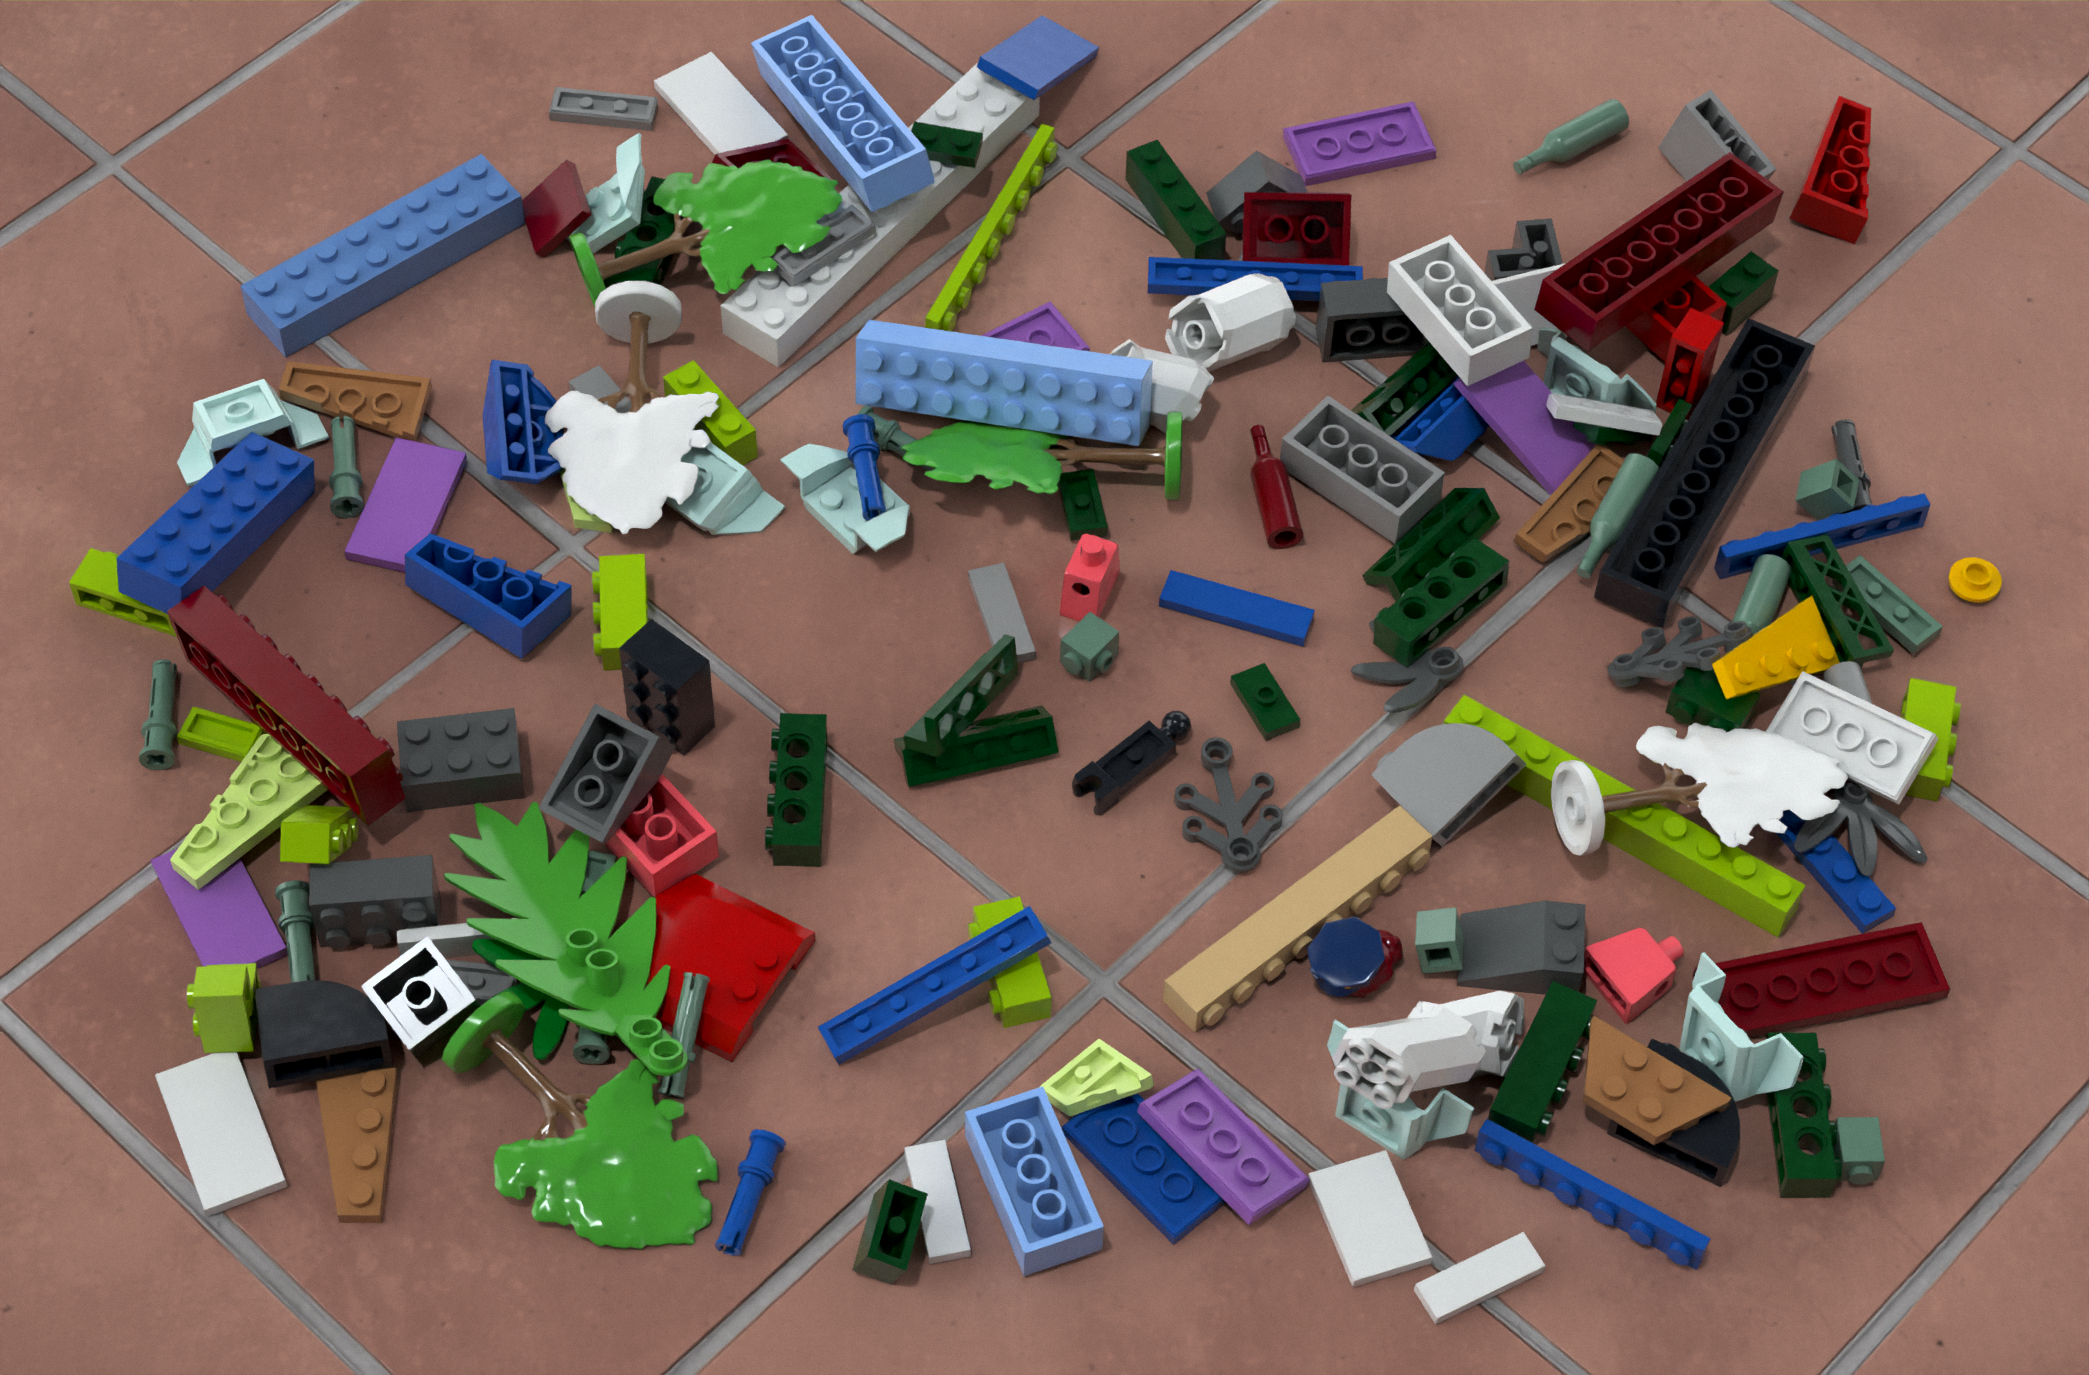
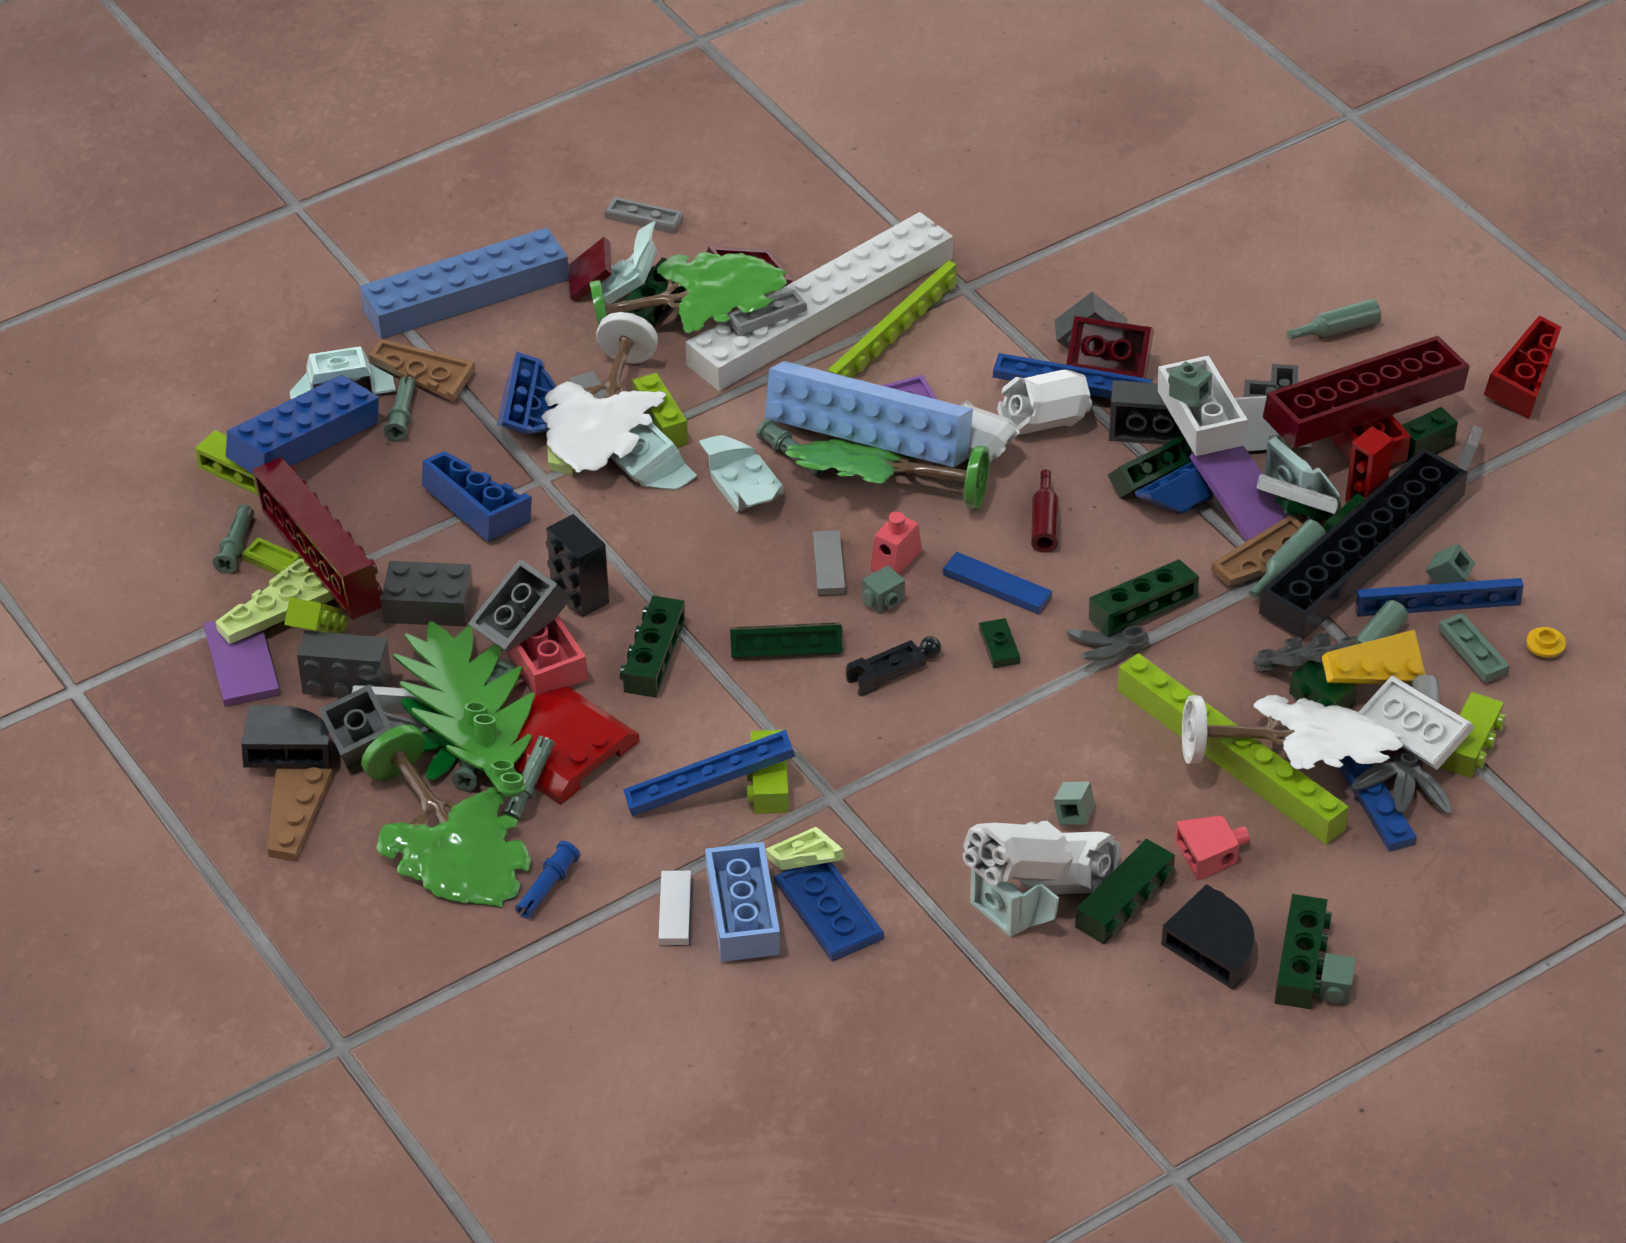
camera: 15 degrees right, 10 degrees down
(220, 1131) = (205, 789): white tile -> none
(225, 1007) = (225, 710): lime brick -> none
(296, 924) = (288, 675): sand green pin -> none
(405, 503) = (441, 429): medium lavender tile -> none
(621, 605) = (565, 501): lime brick -> none
(717, 106) = (723, 221): white tile -> none
(843, 113) = (805, 232): light blue brick -> none
(864, 454) = (758, 446): blue pin -> none
(890, 1232) = (634, 915): dark green brick -> none
(949, 144) = (871, 261): dark green plate -> none
(965, 700) = (784, 603): dark green fence -> none
(1037, 57) = (957, 218): tile -> none
(1082, 504) = (906, 498): dark green plate -> none
(1174, 203) = (1029, 322): dark green brick -> none
(1223, 1146) = (883, 905): medium lavender tile -> none
(1229, 812) = (952, 730): dark grey plant -> none
(1293, 919) = (978, 776): tan brick -> none
(1353, 957) = (1010, 802): dark blue piece -> none
(1359, 143) = (1179, 305): medium lavender tile -> none
(1361, 469) = (1111, 506): light grey brick -> none
(1369, 1218) = (973, 966): white tile -> none
(1444, 287) = (1190, 384): none -> sand green brick
(1447, 775) = (1111, 701): light grey brick -> none
(1449, 525) = (1180, 545): dark green fence -> none
(1479, 1278) = (1040, 1014): white tile -> none
(1524, 947) = (1138, 815): dark grey slope -> none
(1592, 1194) = (1135, 975): blue plate -> none
(1643, 1087) = (1189, 911): medium nougat wing -> none
(1706, 134) = (1429, 319): light grey brick -> none
(1726, 1049) = (1267, 907): light aqua piece -> none
(1805, 307) = (1469, 447): none -> light grey tile
(1808, 581) = (1427, 637): dark green fence -> none
(1831, 980) = (1346, 873): dark red plate -> none
(1850, 456) = (1477, 552): dark grey pin -> none

